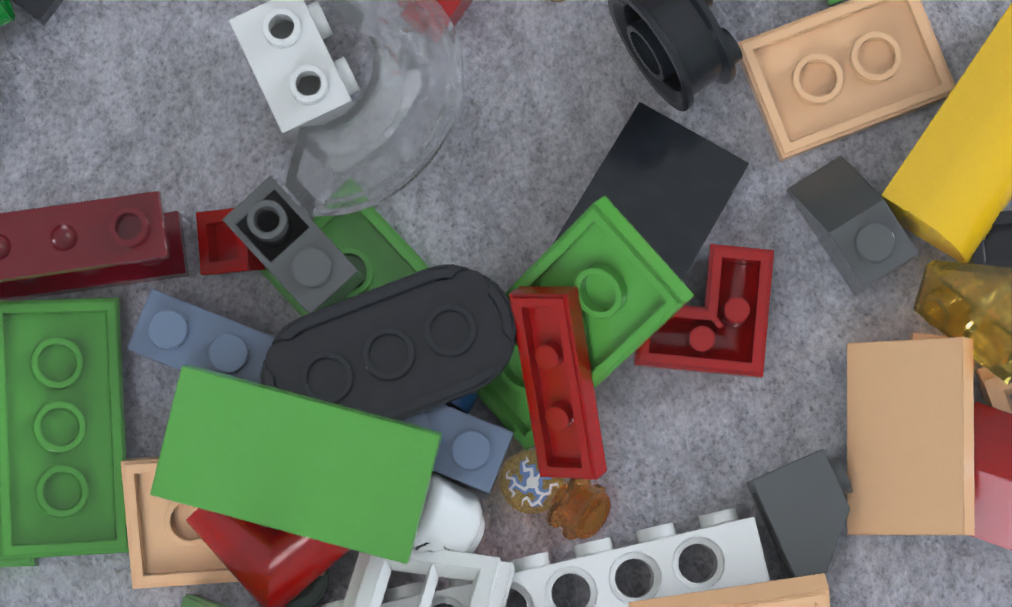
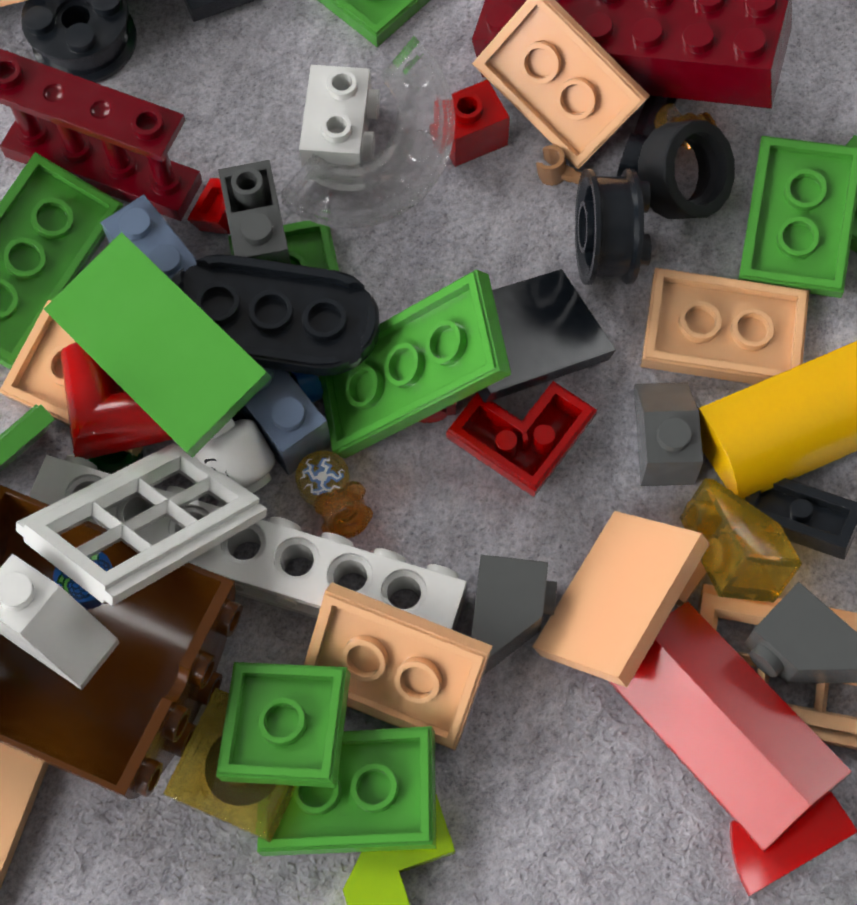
camera: 30 degrees right, 15 degrees down
(558, 381) = (380, 402): red tile -> none

